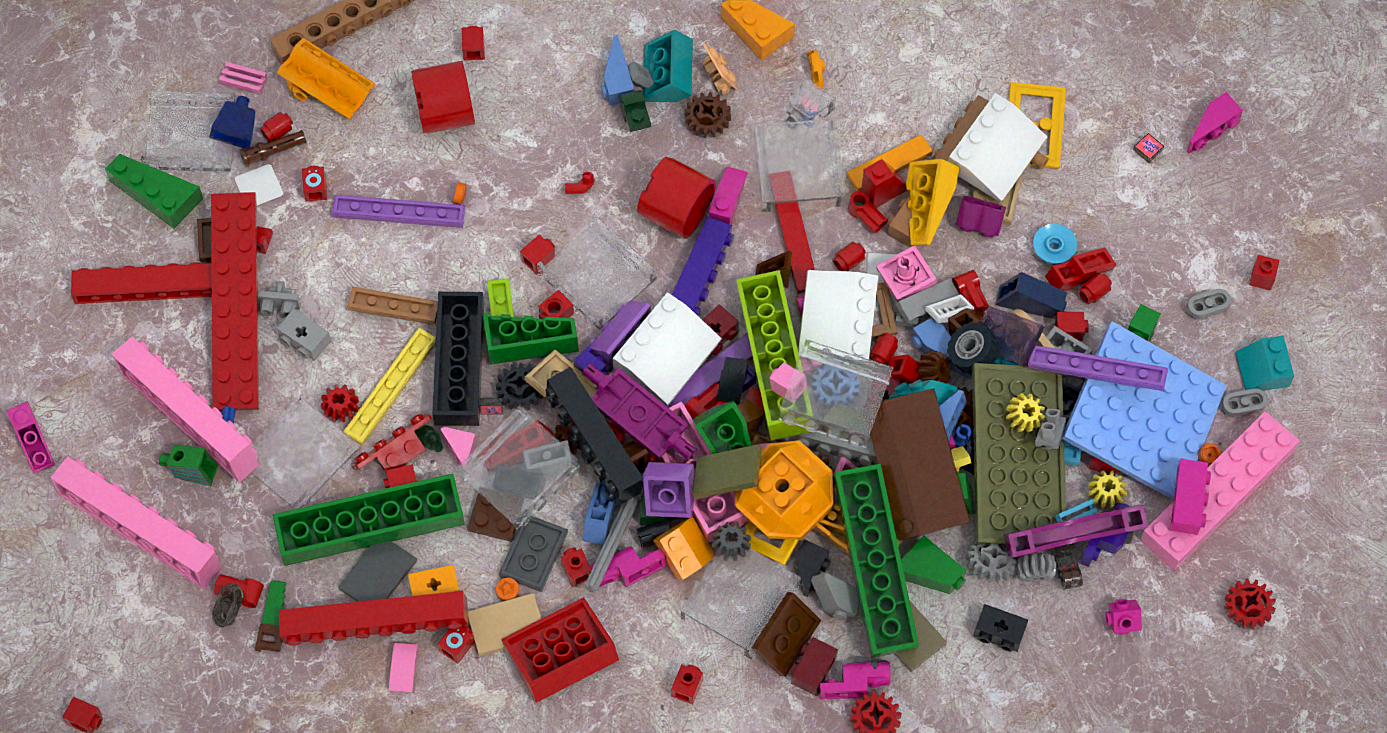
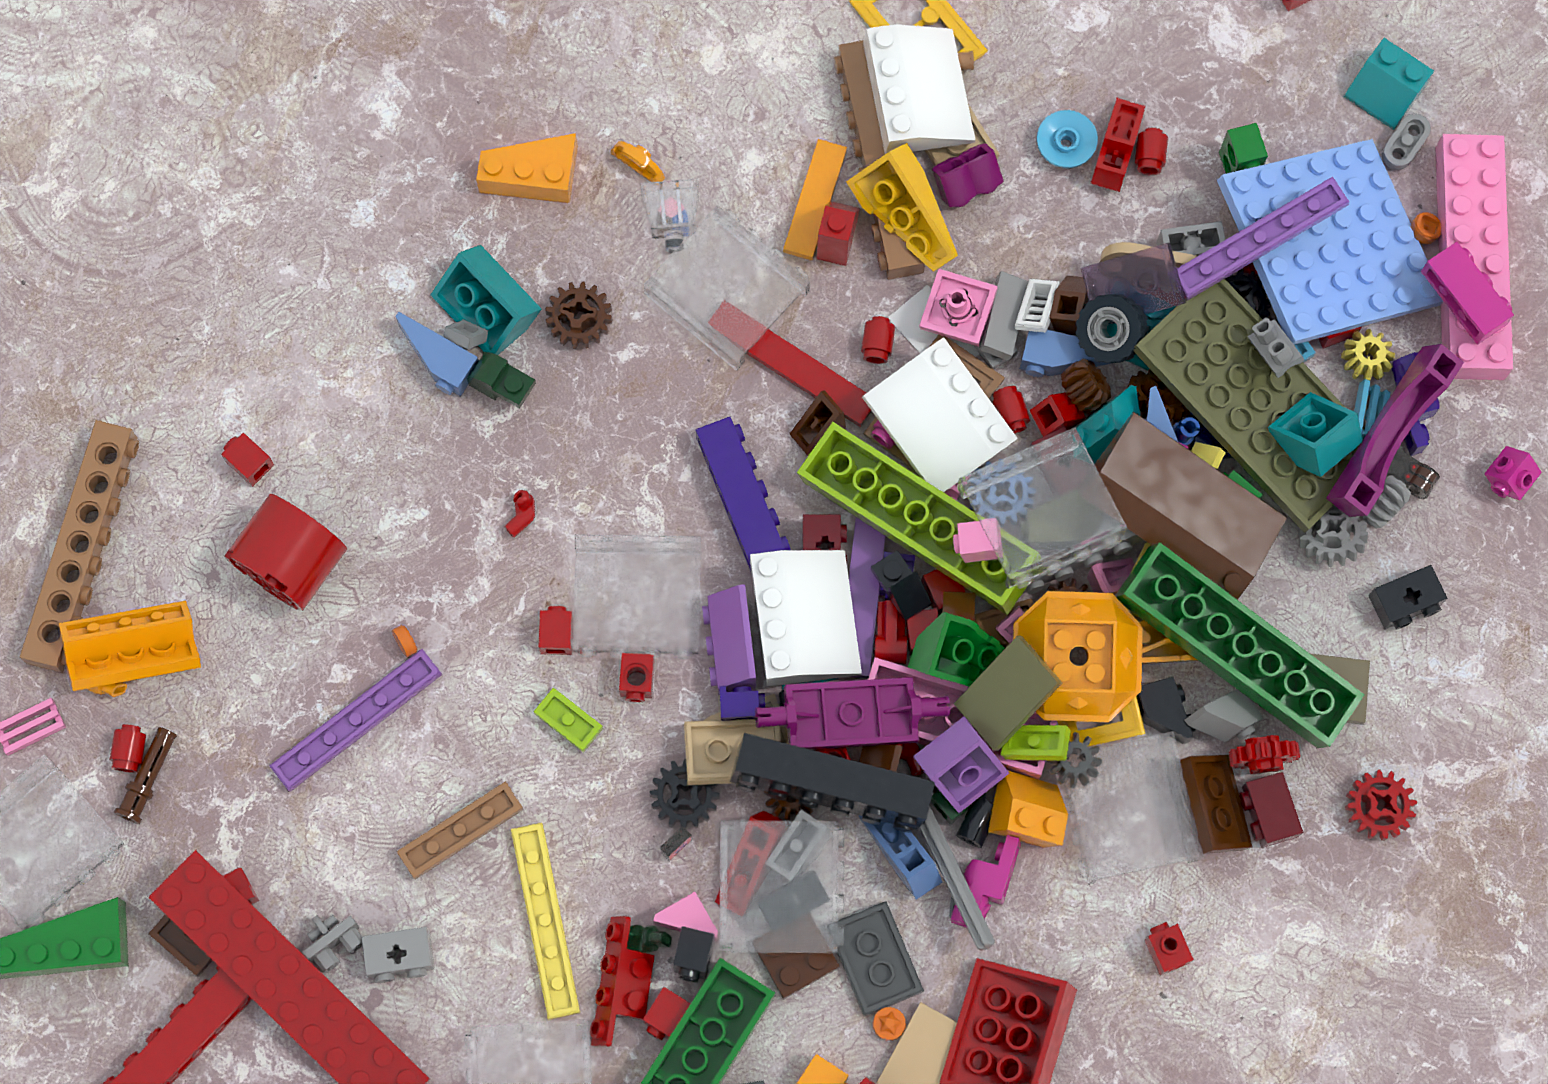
camera: 45 degrees left, 10 degrees up
(234, 123) = (79, 787): clear blue torso -> none
(261, 181) = (172, 830): white sticker -> none
(314, 183) = (235, 773): red brick -> none
(339, 403) = (521, 999): red gear -> none
(442, 459) = (693, 954): none -> black brick
(458, 359) = (592, 825): black brick -> none
(528, 337) = (636, 739): green wedge -> none
(576, 573) = (944, 941): red brick -> none
(676, 197) = (648, 438): red brick -> none
(717, 70) = (530, 245): light nougat hinge -> none
(718, 511) = (1038, 743): none -> lime plate
(728, 195) = (688, 386): dark pink slope -> none
(836, 631) = (1264, 754): none -> red gear
(857, 678) = (1324, 780): dark pink plate -> none
(868, 213) = (851, 275): red piece -> none
(932, 567) = (1286, 594): green slope -> none
(969, 287) = (1028, 264): red piece -> none
(1025, 420) = (1236, 362): light yellow gear -> none
(1031, 296) = (1099, 218): dark blue slope -> none
(1031, 496) = (1317, 433): none -> teal slope
(1072, 324) = (1167, 212): red brick -> none
(1207, 303) = (1273, 69): light grey plate -> none

